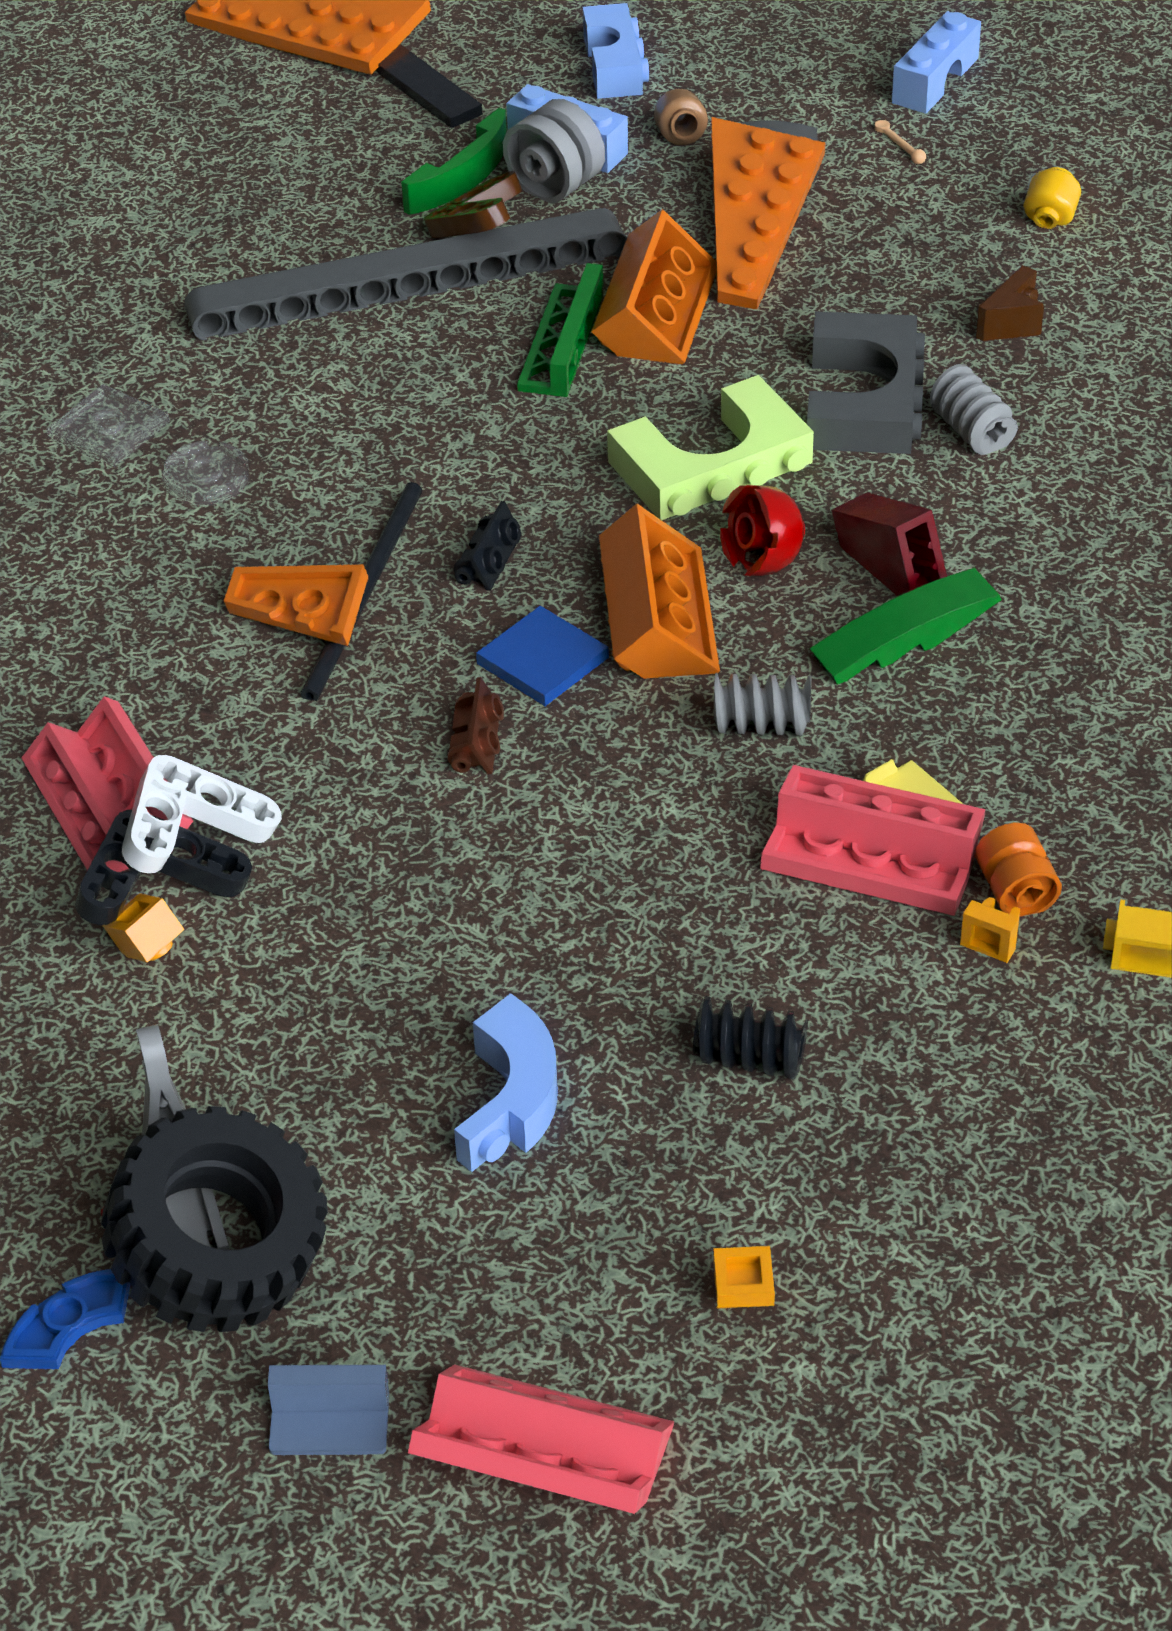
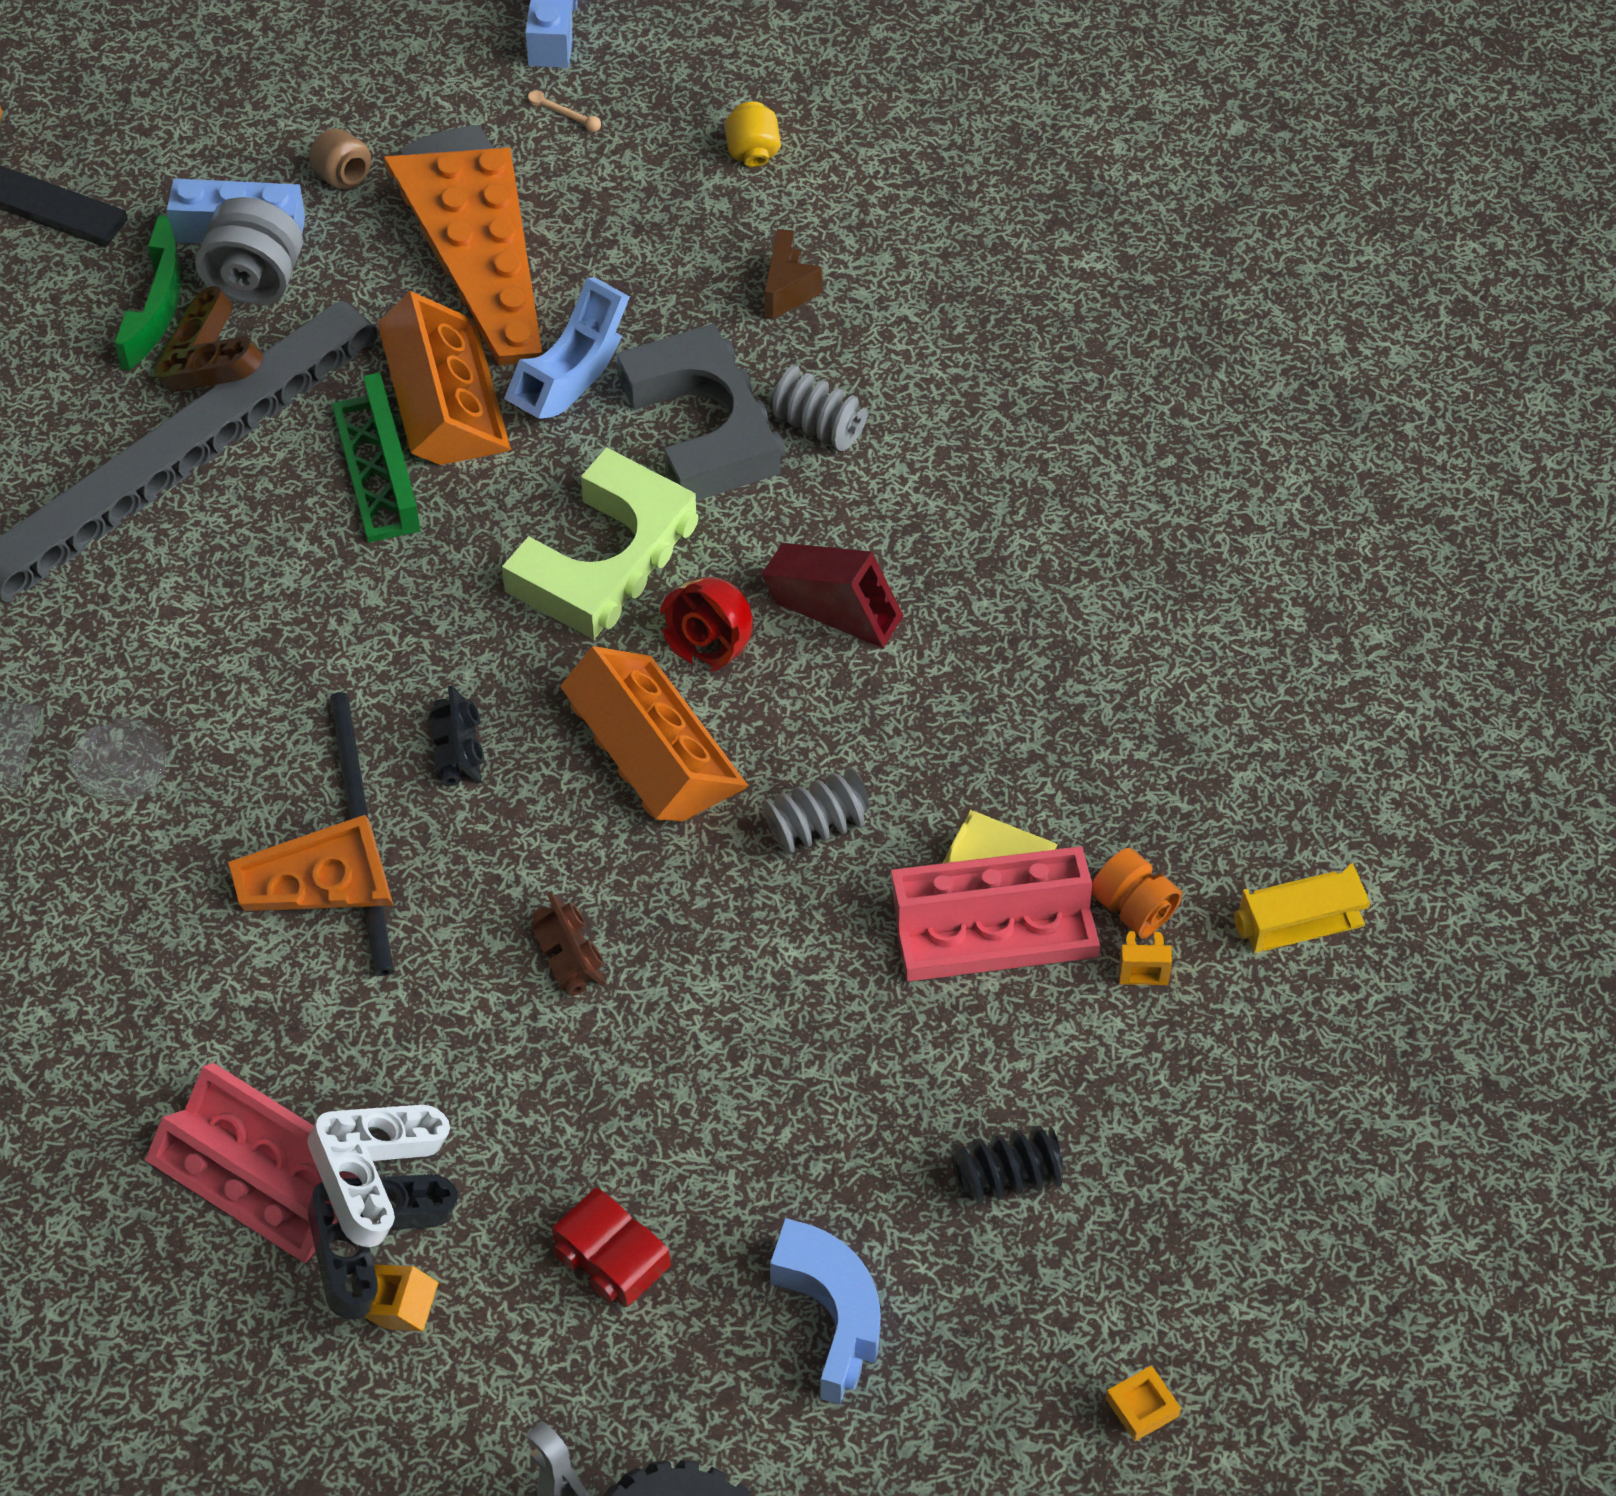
camera: 30 degrees left, 10 degrees up
(349, 964) = (610, 1248): none -> red brick
(542, 655) = (577, 836): blue tile -> none
(615, 50) = (239, 116): light blue arch -> none
(780, 313) = (558, 377): none -> light blue arch
(912, 619) = (891, 671): green slope -> none

